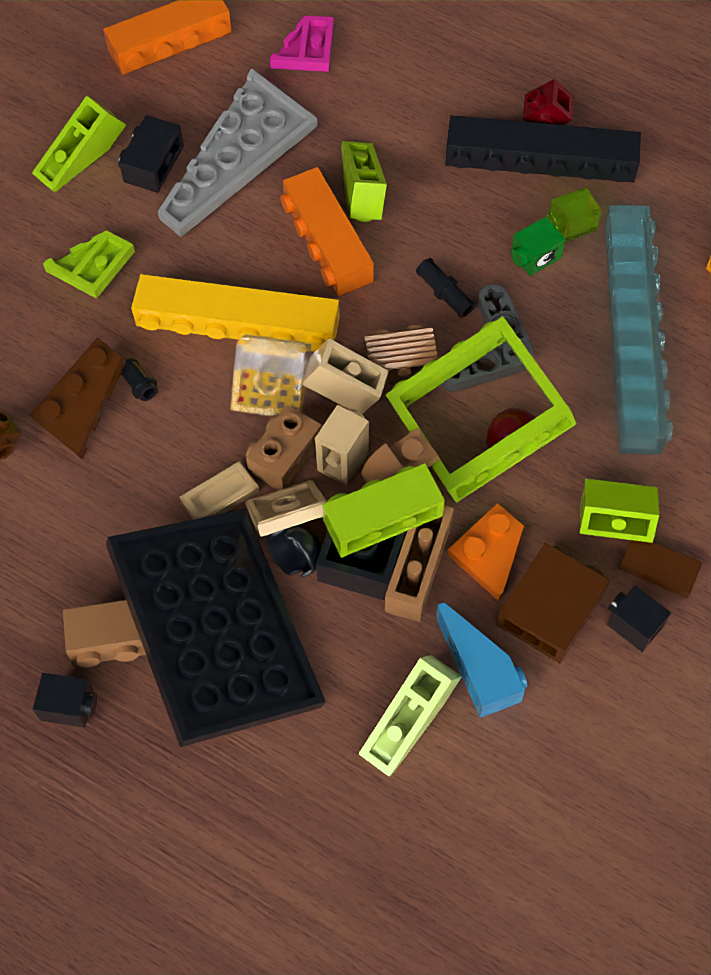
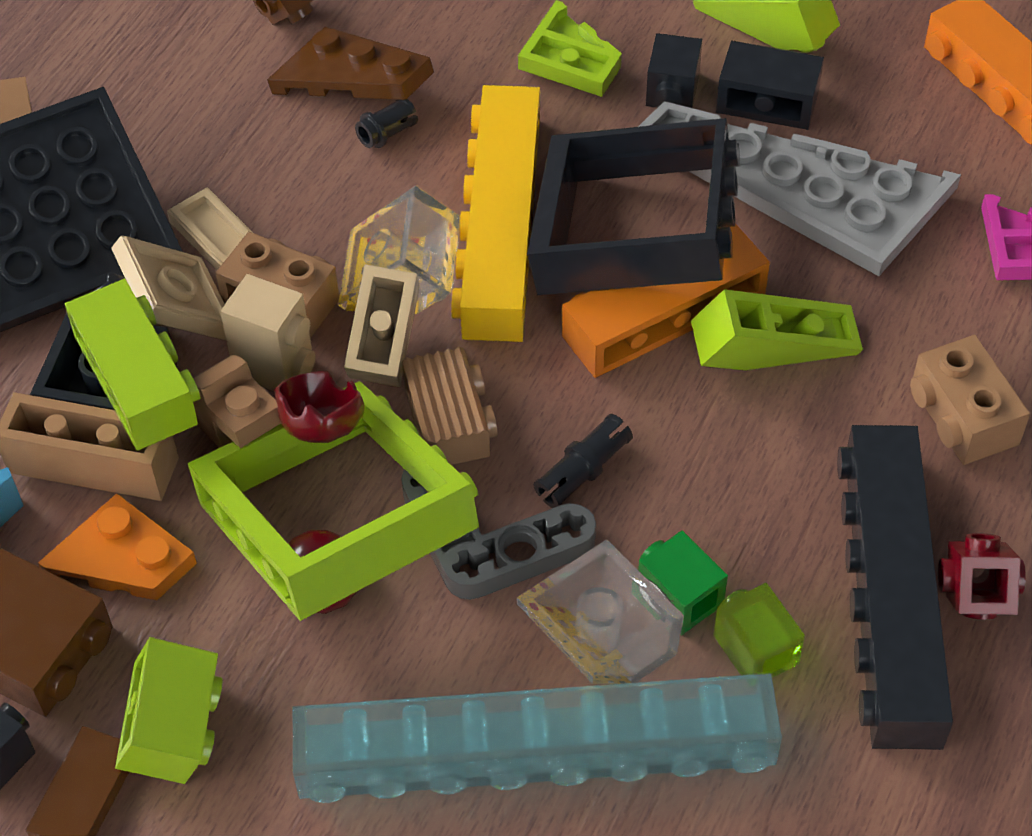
camera: 85 degrees right, 10 degrees down
(129, 204) = (673, 70): none -> black brick
(260, 276) = (638, 261): none -> black window
(427, 401) = (318, 409): none -> dark red hair
(428, 96) = (969, 400): none -> medium nougat brick
(569, 276) = (605, 617): none -> clear slope

